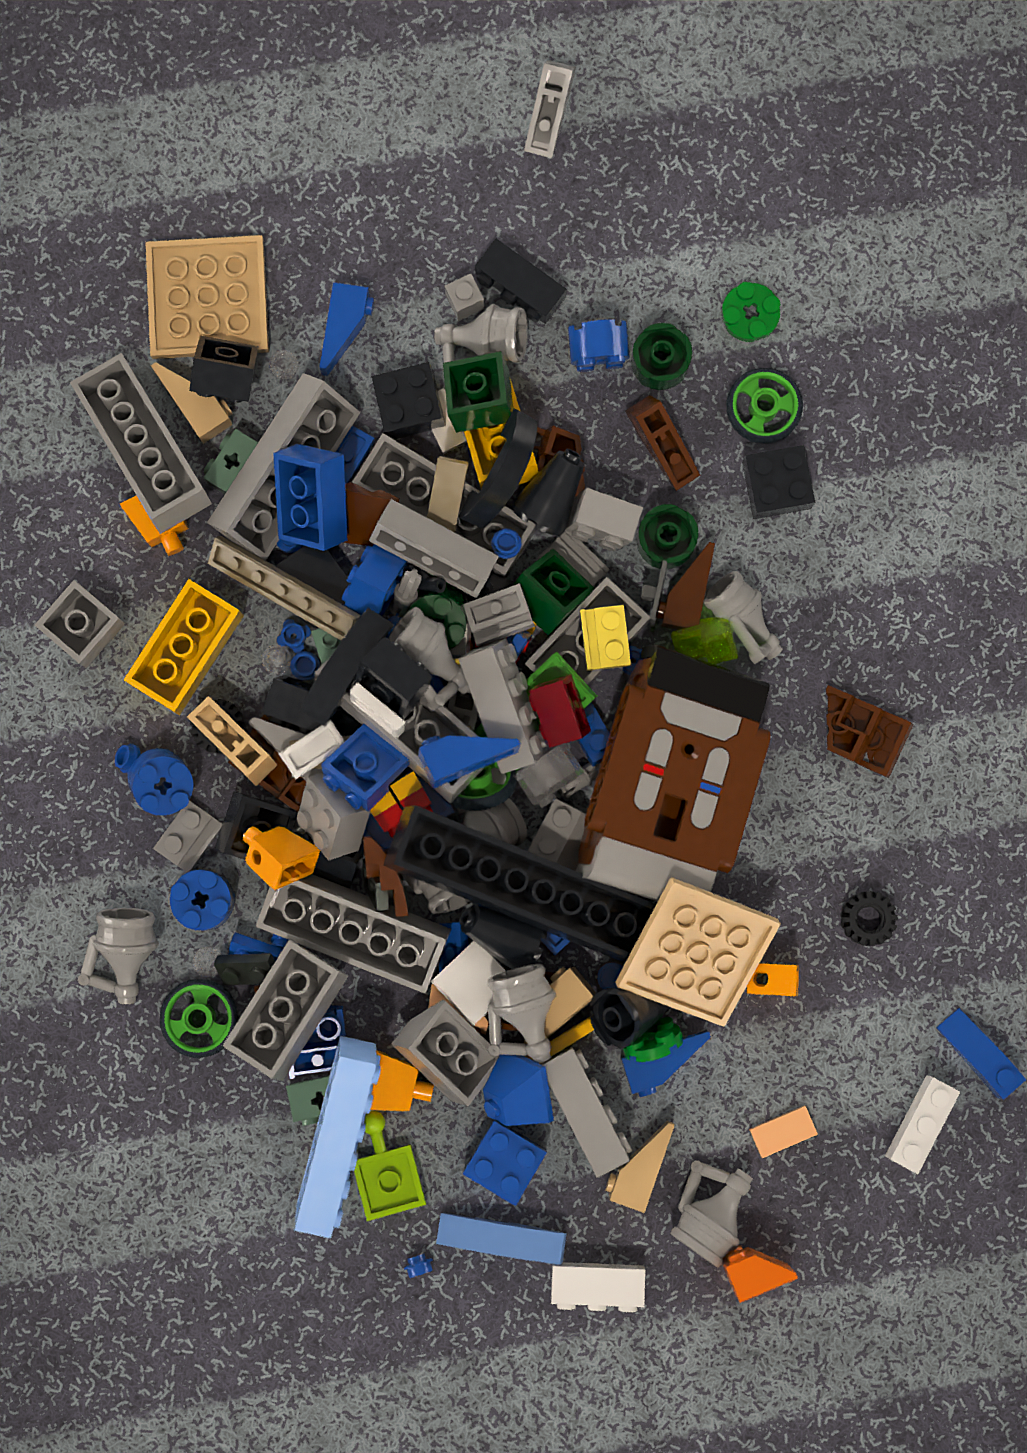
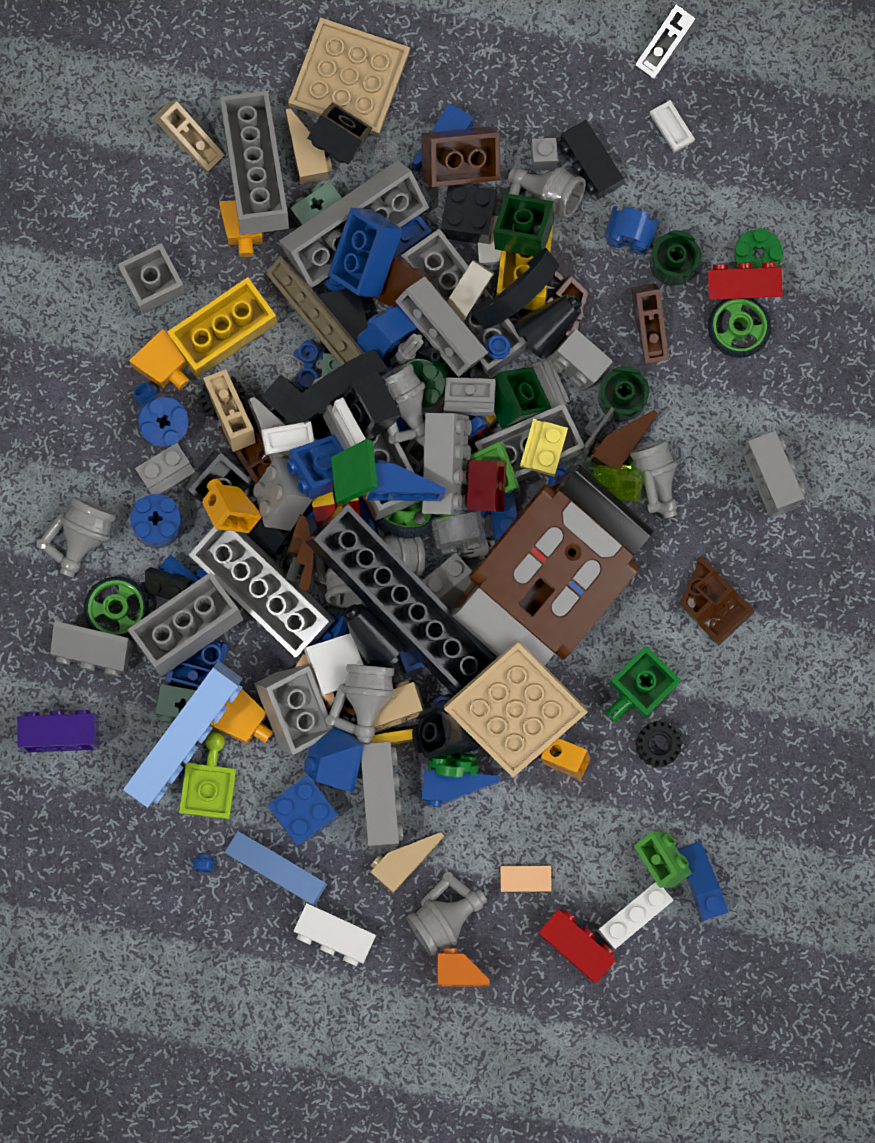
camera: 15 degrees right, 5 degrees down
(52, 439) = (188, 134): none -> tan slope
(131, 715) = (161, 362): none -> light orange torso
(189, 1079) = (90, 649): none -> light grey slope
(192, 1189) = (57, 731): none -> dark purple brick
(372, 339) = (460, 156): none -> reddish brown brick
(406, 764) = (354, 472): none -> green tile
(594, 205) = (672, 126): none -> white tile
(751, 351) = (745, 281): none -> red brick
(778, 482) = (725, 387): black brick -> none
(832, 876) = (635, 696): none -> green brick
(872, 1184) = (577, 945): none -> red brick
(873, 560) = (773, 474): none -> light grey brick
(929, 1049) = (663, 859): none -> bright green brick

